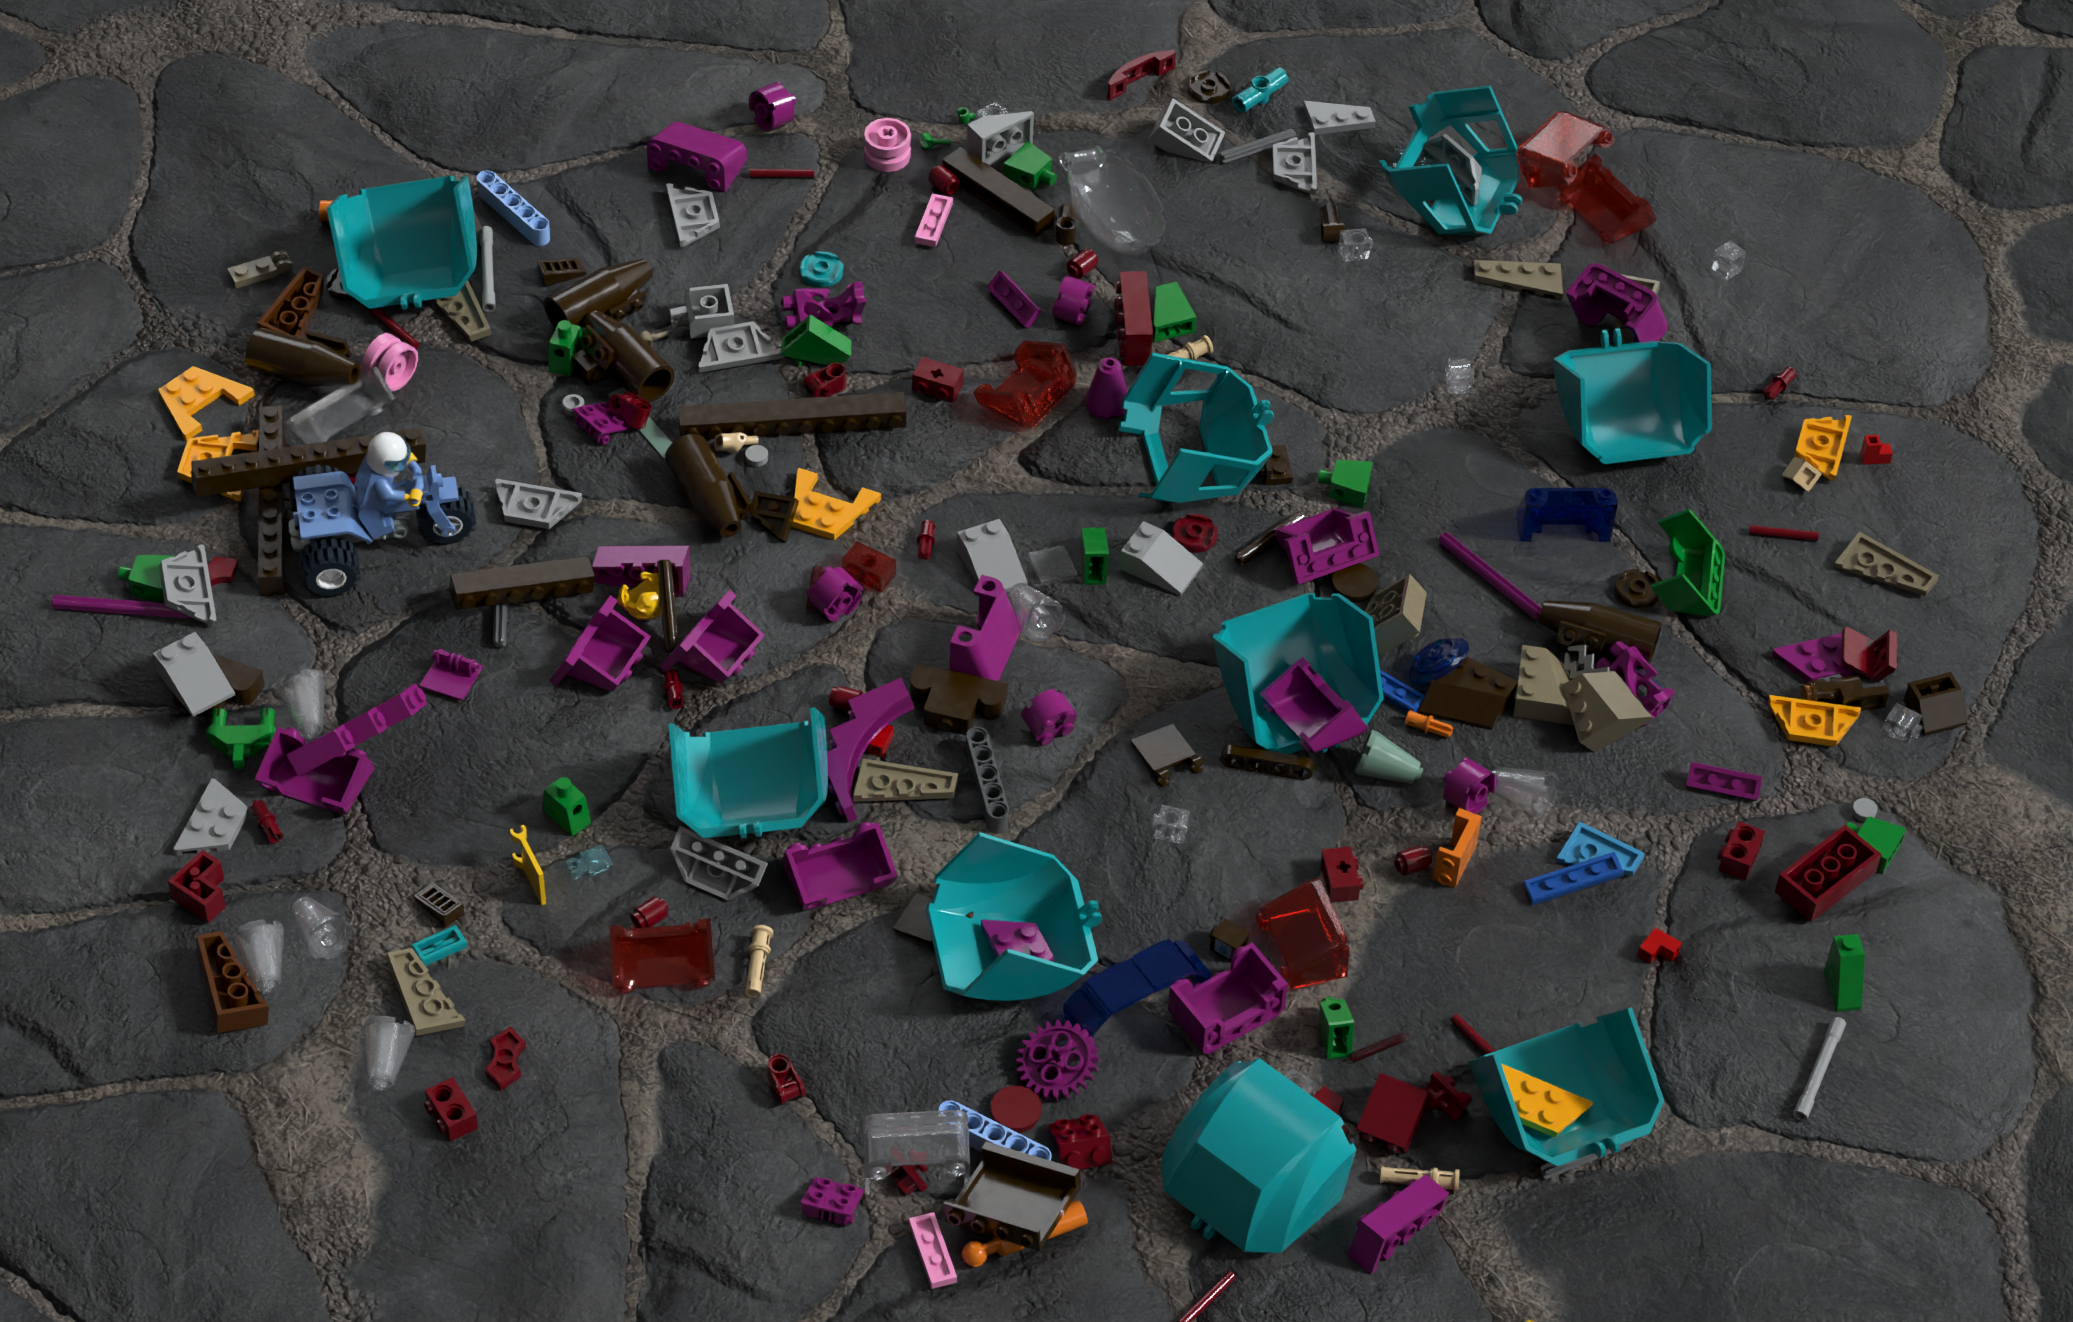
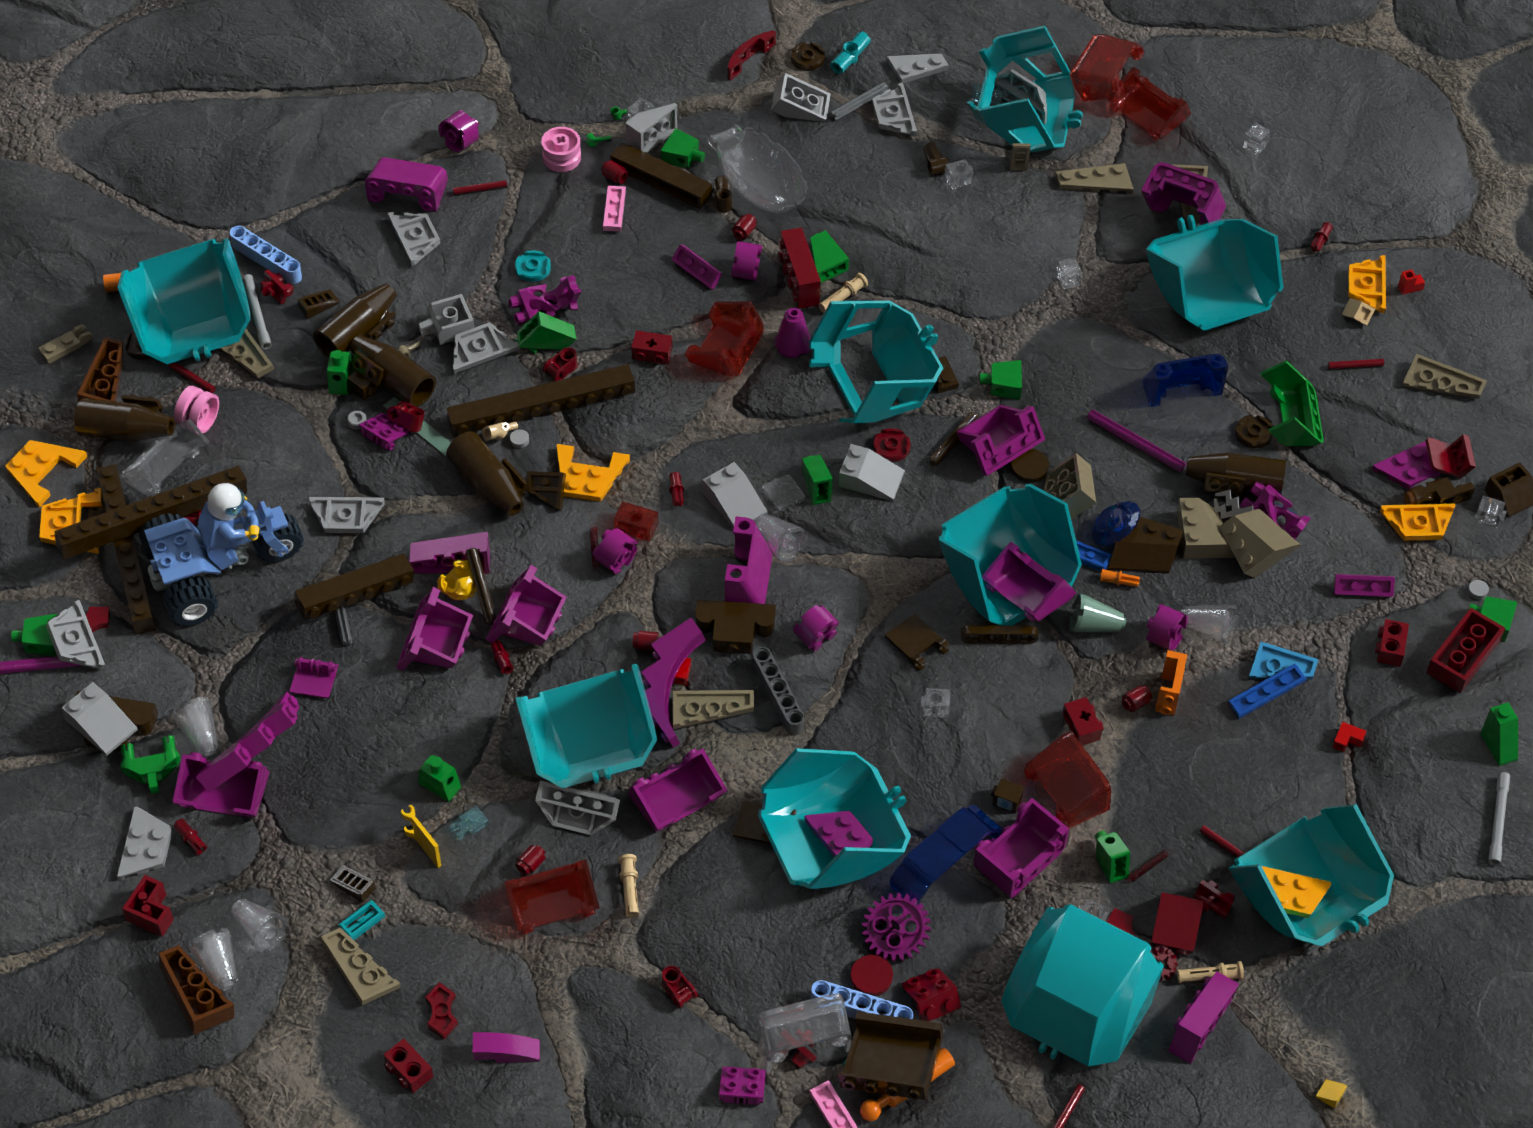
camera: 10 degrees left, 5 degrees up
(386, 1049) = (341, 1024): clear cone -> none
(515, 244) = (274, 286): none -> dark red hips
(567, 1109) = (505, 1047): none -> magenta slope
(1375, 1156) = (1162, 953): none -> dark red gear
(1432, 239) = (1019, 157): none -> dark tan slope

